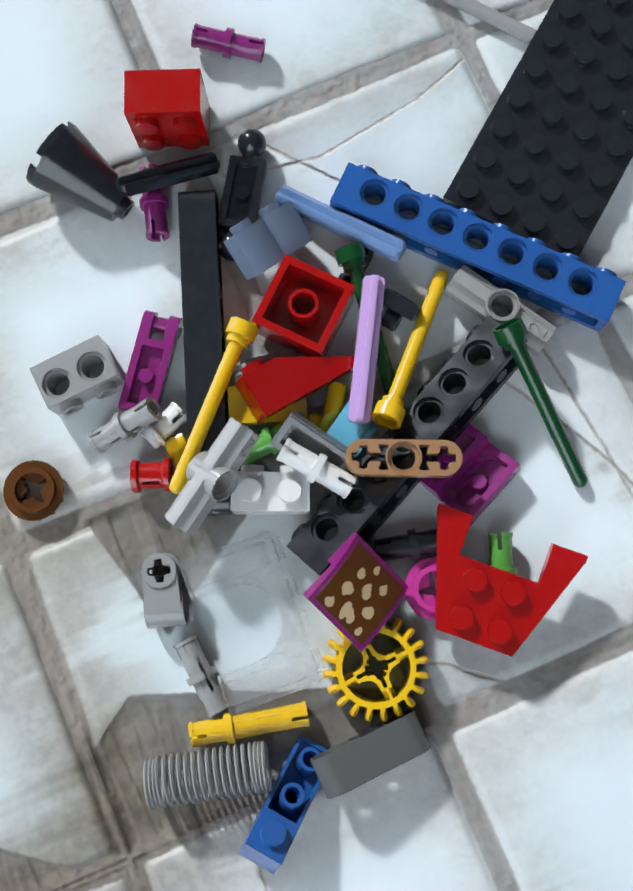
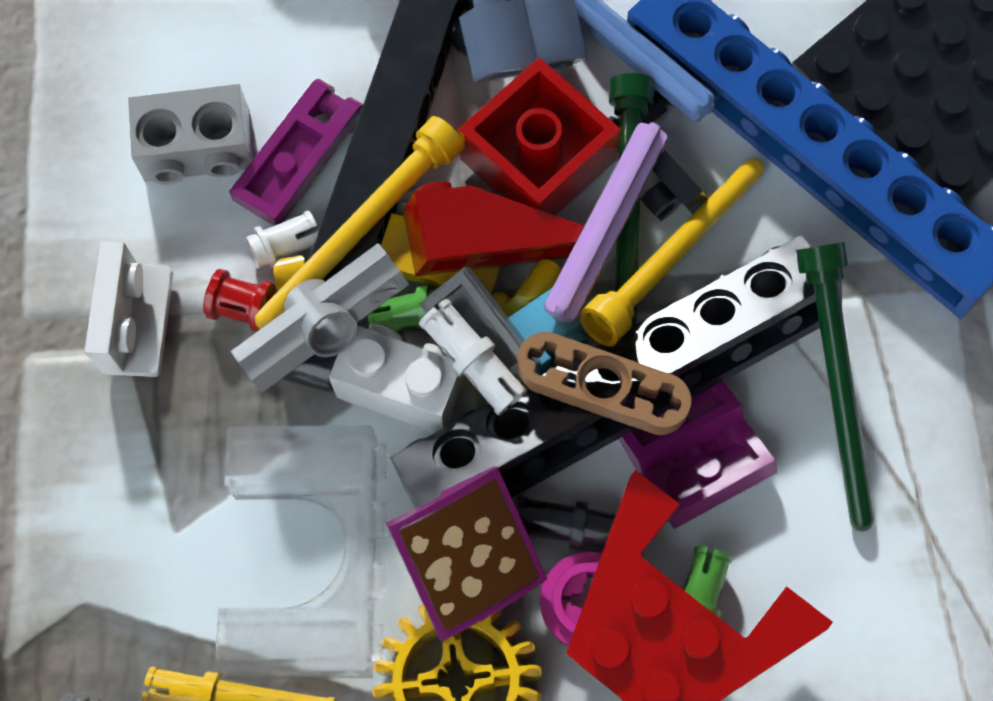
camera: 15 degrees right, 10 degrees down
(17, 489) = (47, 258): reddish brown gear -> none
(86, 508) = (128, 313): none -> white bracket
(125, 425) = (229, 217): light grey pin -> none
(164, 601) = (189, 474): light grey piece -> none
(201, 675) = (197, 605): light grey pin -> none
(479, 295) = (802, 210): light grey piece -> none

